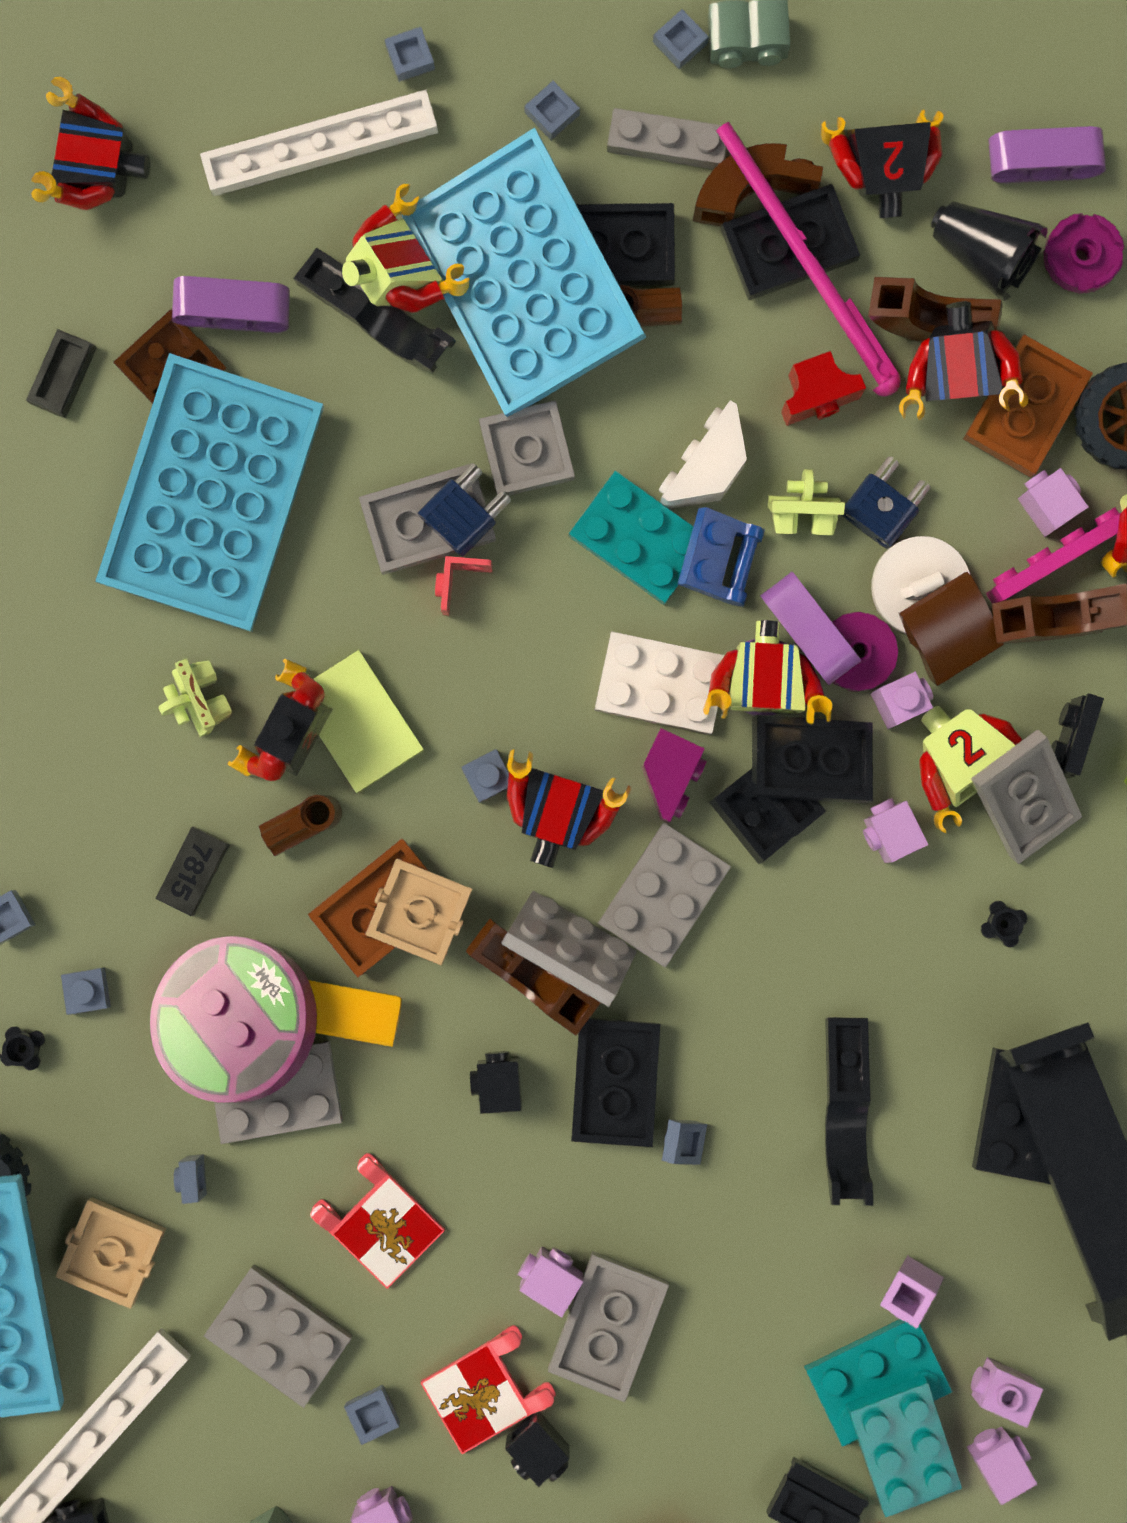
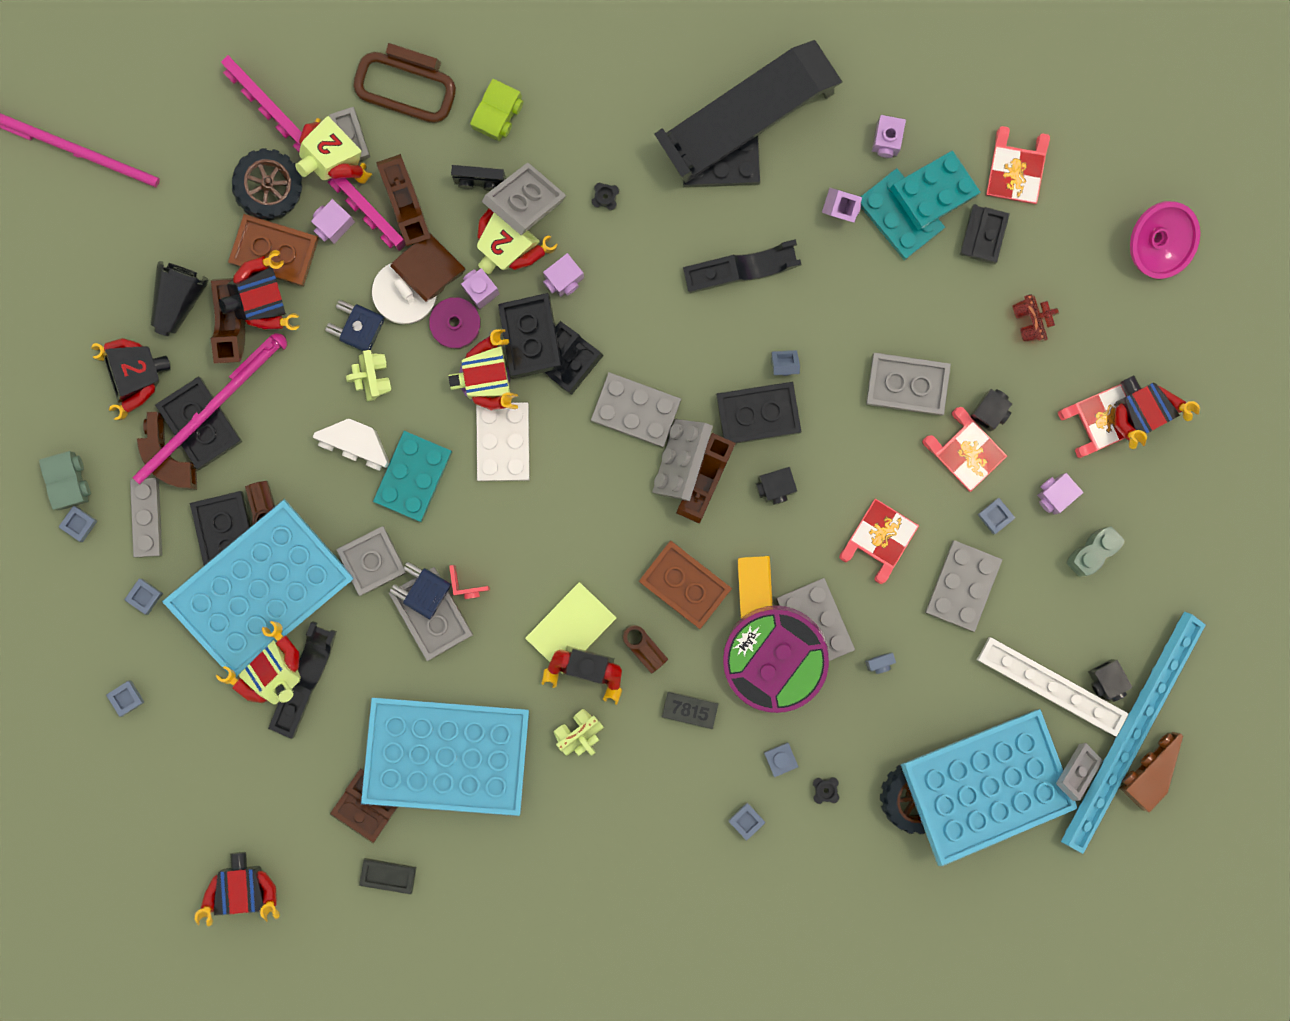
camera: 105 degrees left, 0 degrees up
(110, 1252) = (938, 702): tan plate -> none
(230, 304) = (318, 774): medium lavender beam -> none
(319, 143) = (197, 743): white plate -> none
(419, 911) = (681, 558): tan plate -> none
(487, 775) = (586, 537): sand blue plate -> none
(550, 1279) = (888, 425): lavender brick -> none
(558, 809) = (597, 486): torso -> none
(669, 769) = (556, 423): magenta slope -> none
(710, 552) = (413, 428): blue plate -> none
(810, 628) = (447, 355): medium lavender beam -> none
(820, 389) = (291, 383): red brick -> none
(1002, 1463) = (931, 129): lavender brick -> none
(1047, 154) = (106, 272): medium lavender beam -> none
(1095, 238) = (154, 229): magenta plate -> none

